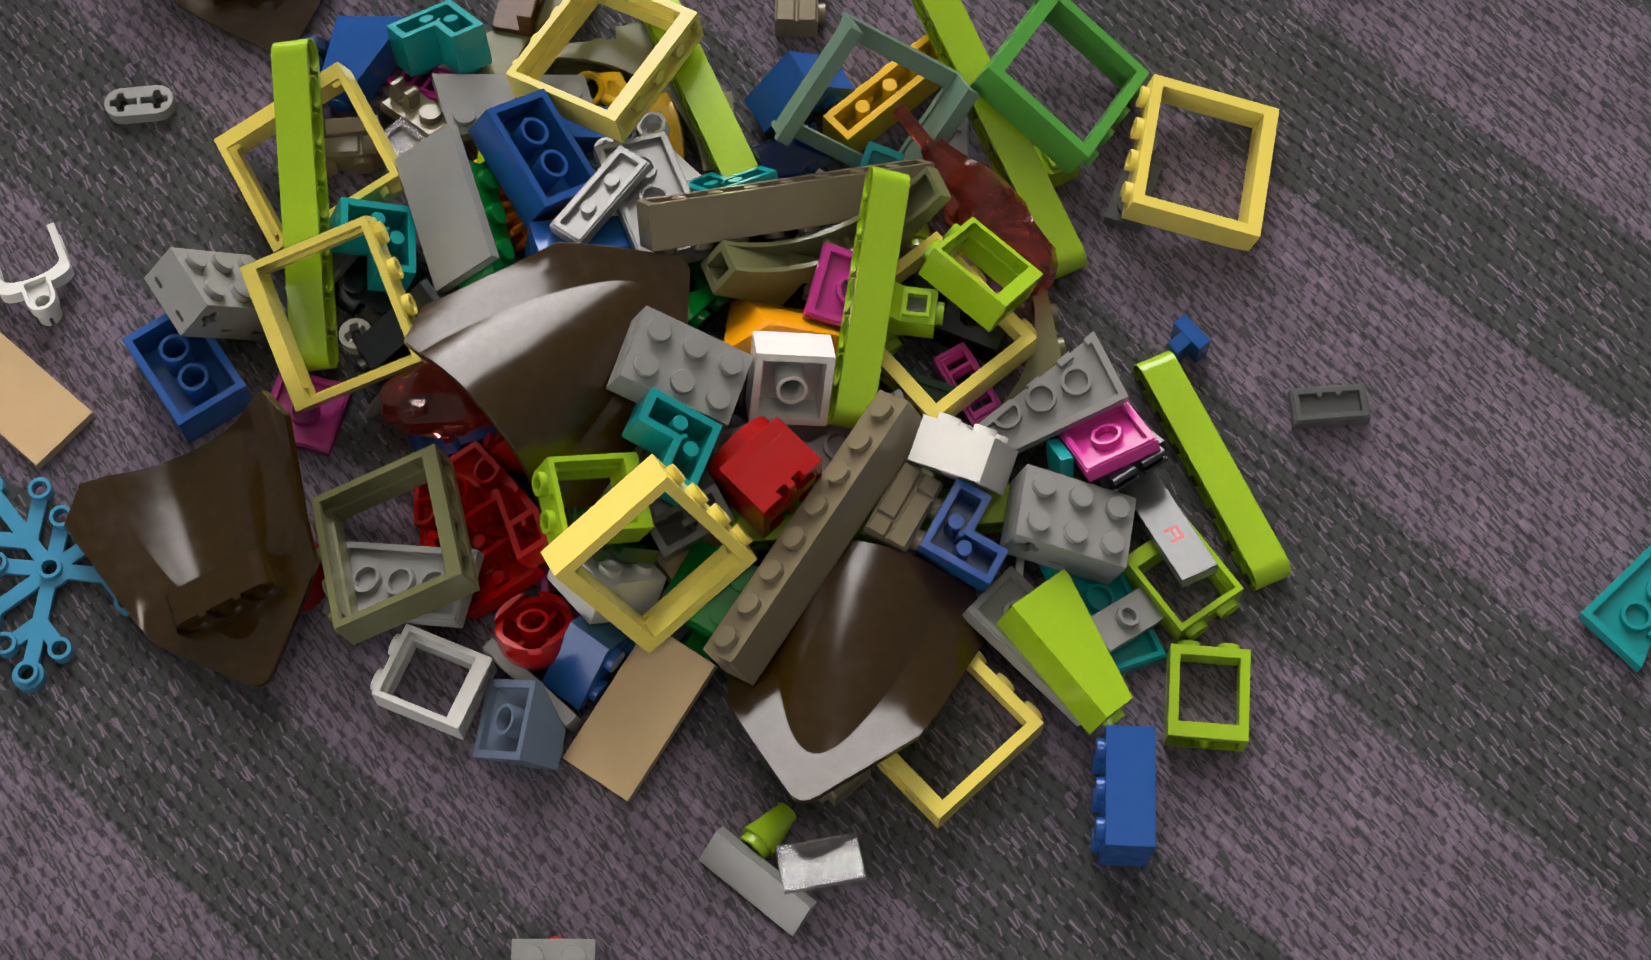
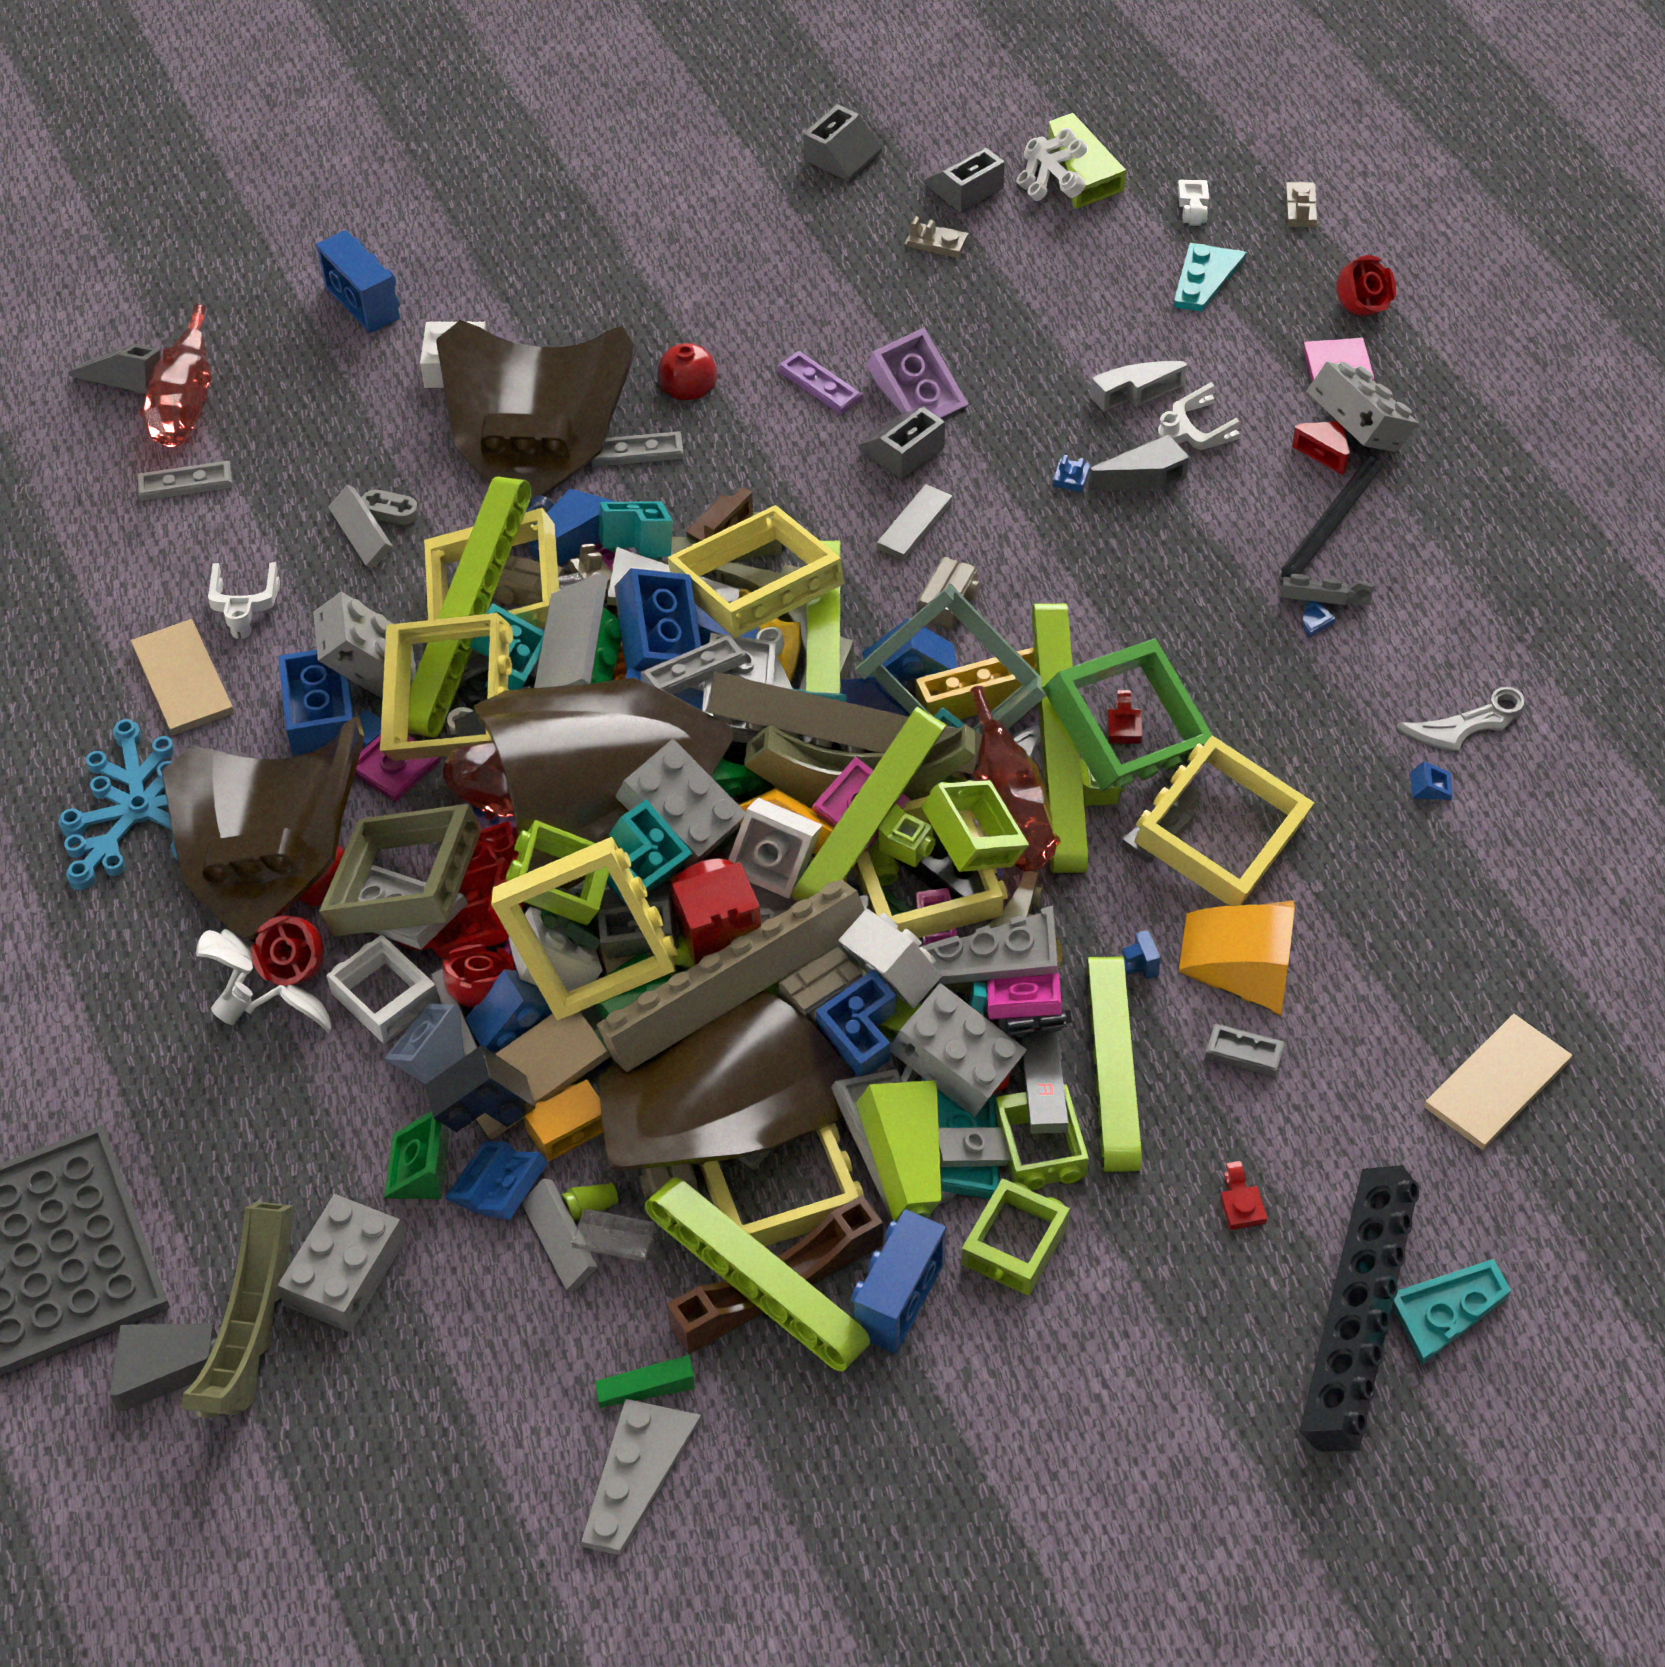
camera: 25 degrees right, 15 degrees down
(121, 141) = (360, 526): none -> light grey tile
(258, 377) = (371, 727): none -> blue tile
(263, 724) = (236, 999): none -> white plant
(314, 682) = (287, 950): none -> red cylinder
(568, 858) = (418, 1160): none -> green slope
(608, 764) = (479, 1086): none -> black brick
(662, 846) = (496, 1180): none -> blue slope
(701, 752) = (565, 1120): none -> light orange brick
(985, 847) = (758, 1274): none -> lime beam
(999, 838) = (836, 1242): none -> reddish brown arch
(1043, 81) = (1123, 722): none -> red plate
(1277, 295) = (1241, 950): none -> light orange wedge
(1370, 40) = (1430, 782): none -> blue slope
(1399, 572) = (1241, 1204): none -> red plate
(1524, 511) = (1360, 1310): none -> black brick
(1576, 345) = (1498, 1081): none -> tan tile

